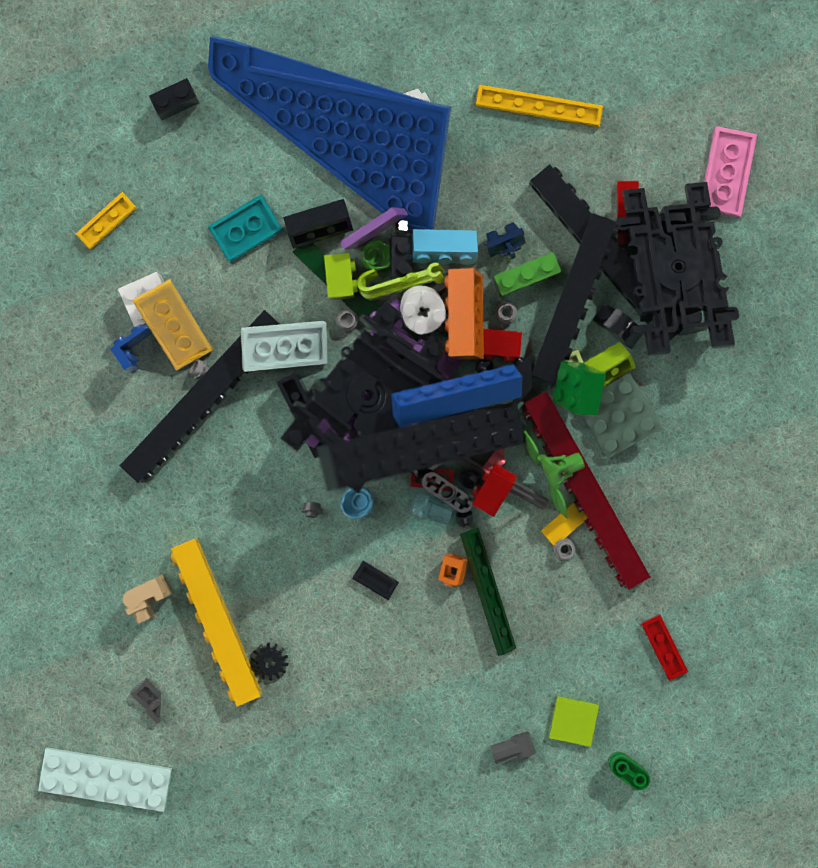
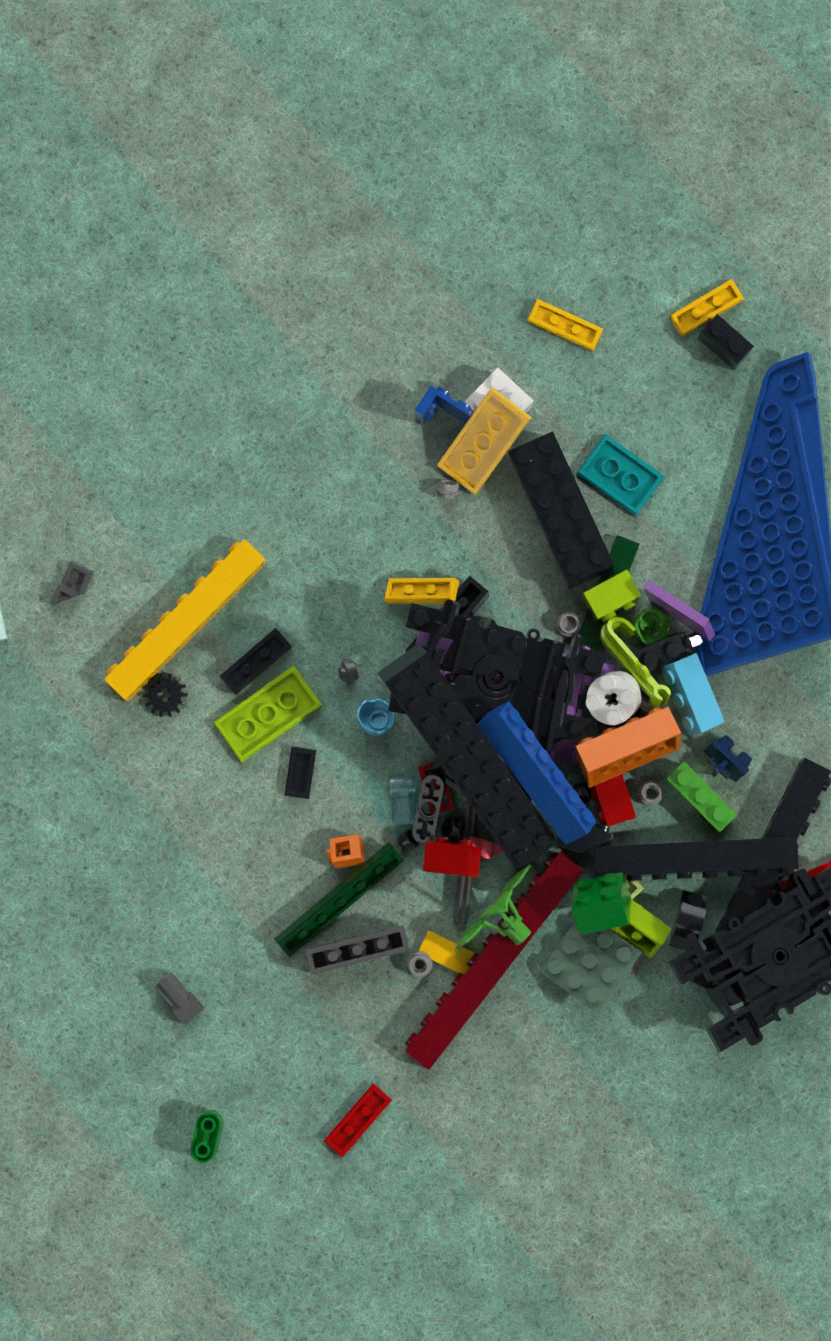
camera: 65 degrees right, 5 degrees down
(140, 102) = (706, 308): none -> yellow tile
(141, 597) = (178, 529): tan hips -> none
(190, 410) = (420, 505): black brick -> none
(253, 287) = (561, 510): none -> black brick
(272, 425) = (420, 590): none -> yellow tile
(273, 579) = (255, 661): none -> black plate
(284, 345) = (512, 568): light aqua plate -> none
(318, 223) = (658, 549): black brick -> none
(318, 586) = (267, 714): none -> lime tile
(533, 594) = (357, 949): none -> dark grey brick
(573, 721) = (236, 1053): lime tile -> none

